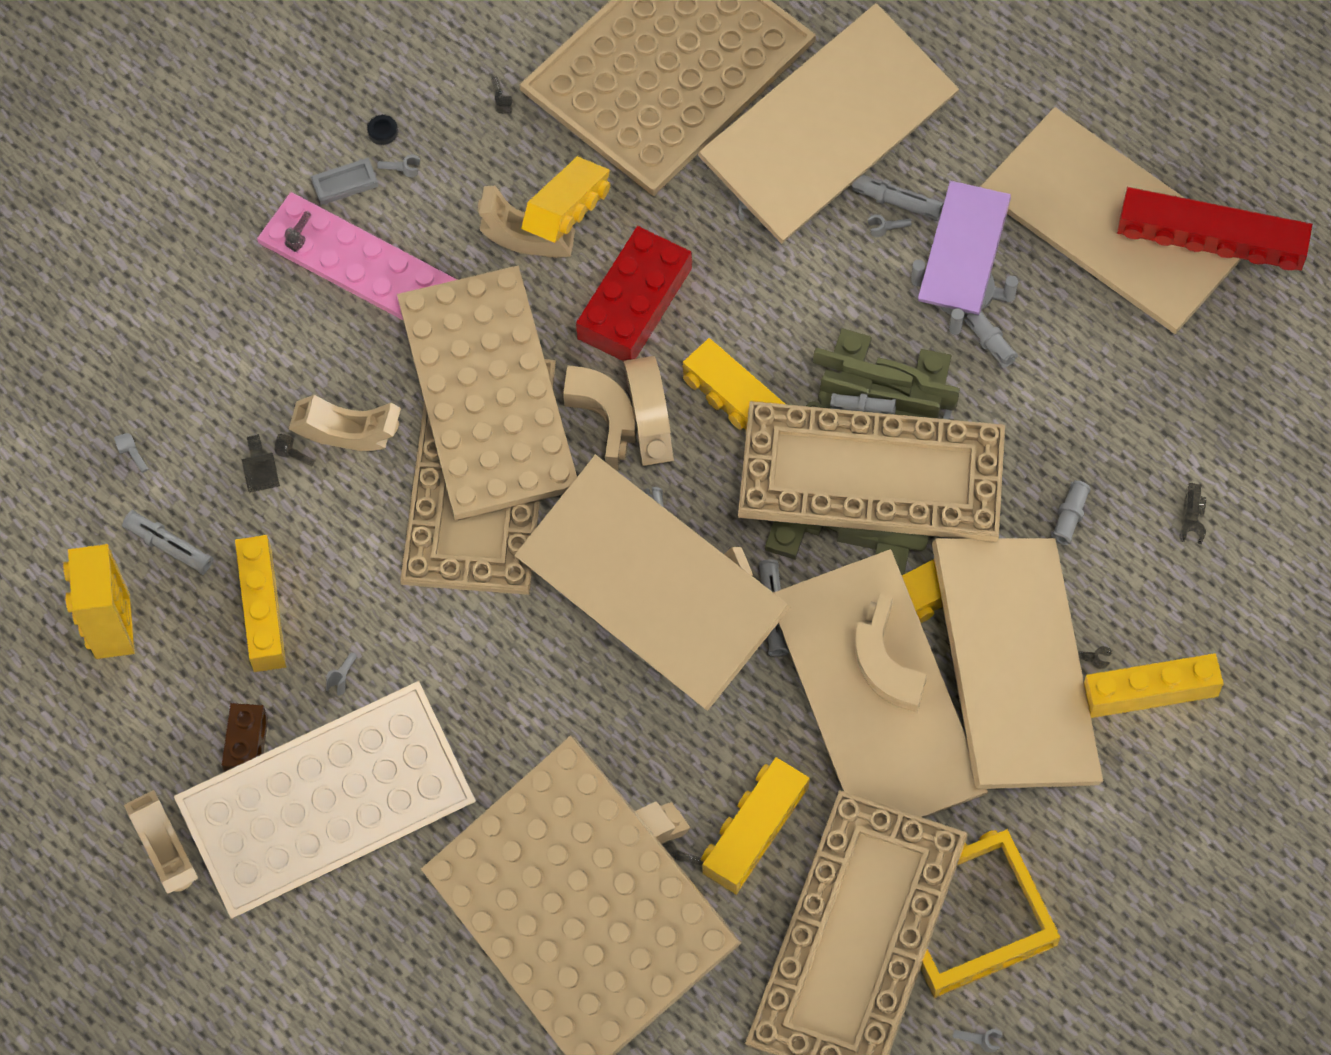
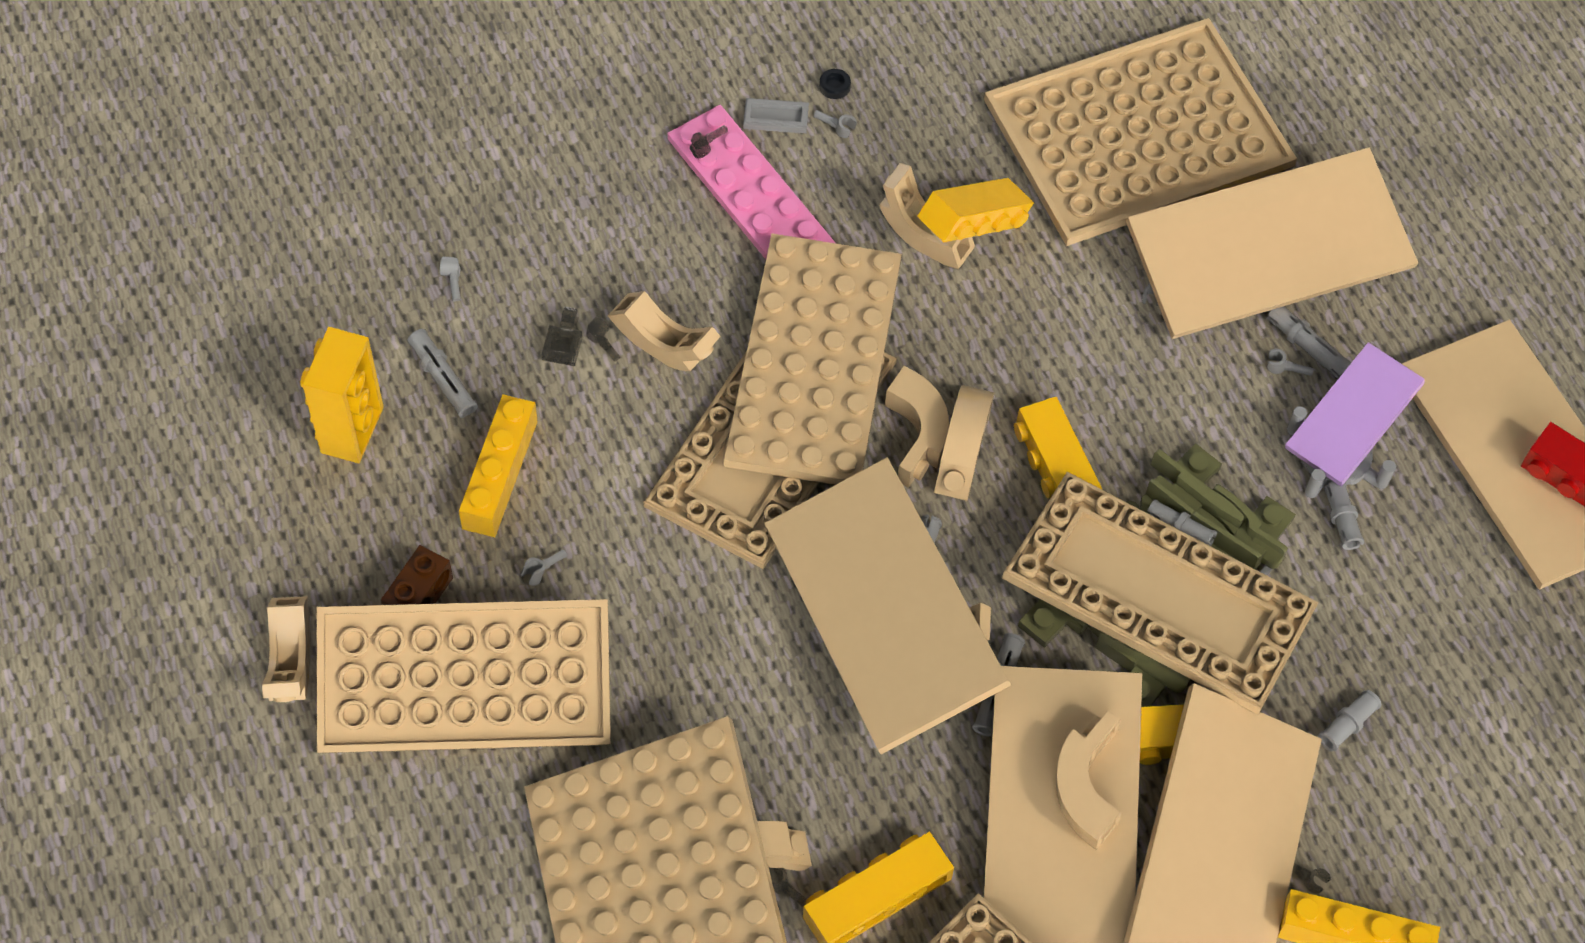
camera: 20 degrees right, 5 degrees down
(503, 102) = (962, 104): clear smoke hand -> none
(634, 295) = (1002, 327): red brick -> none
(1193, 507) = (1482, 769): clear smoke plate -> none

